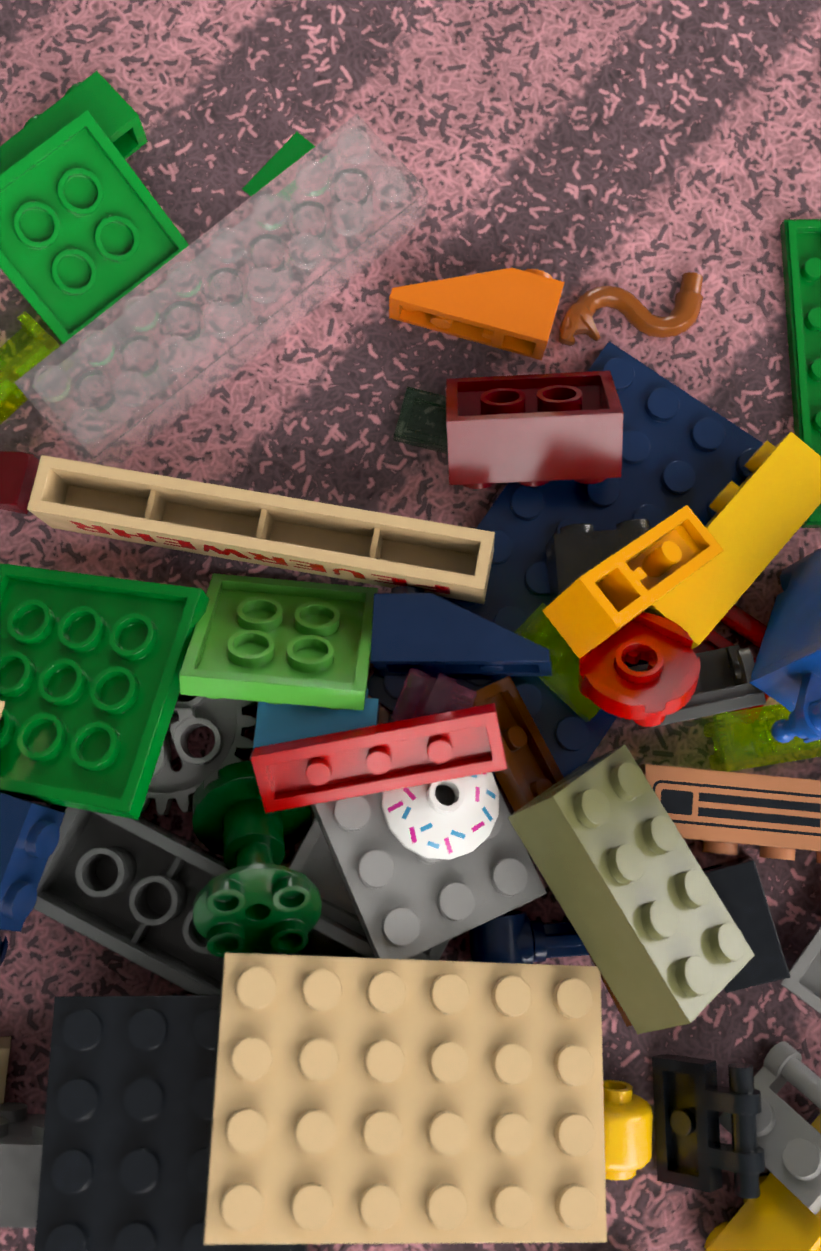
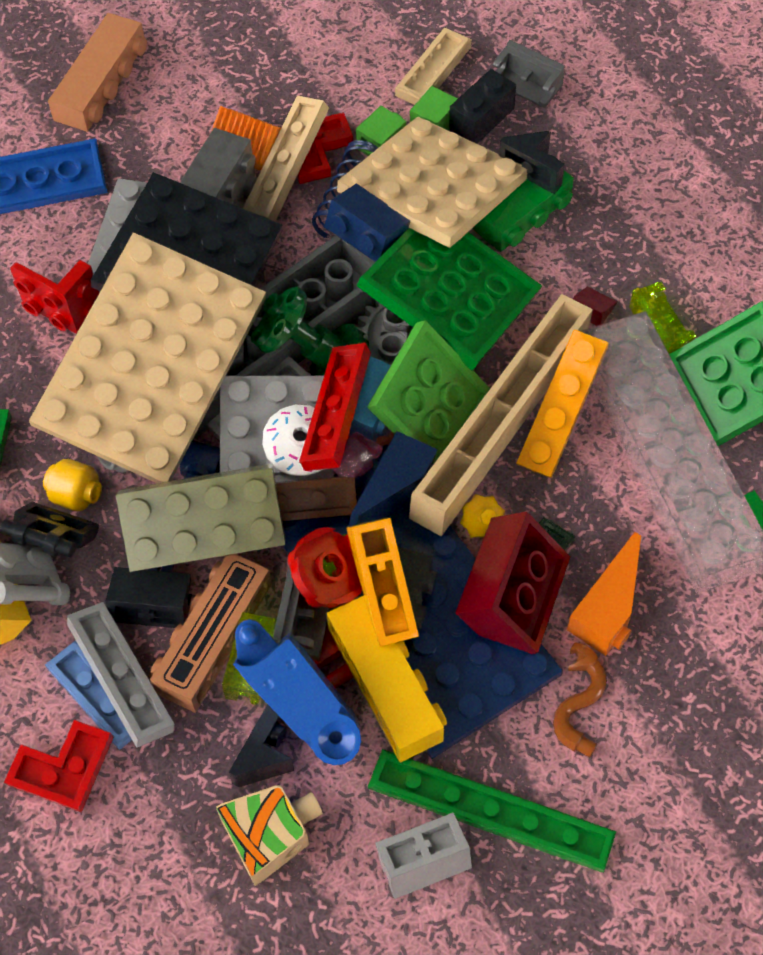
camera: 120 degrees right, 20 degrees down
(211, 453) = (562, 403): none -> light orange plate
(429, 504) = (478, 514): none -> yellow piece

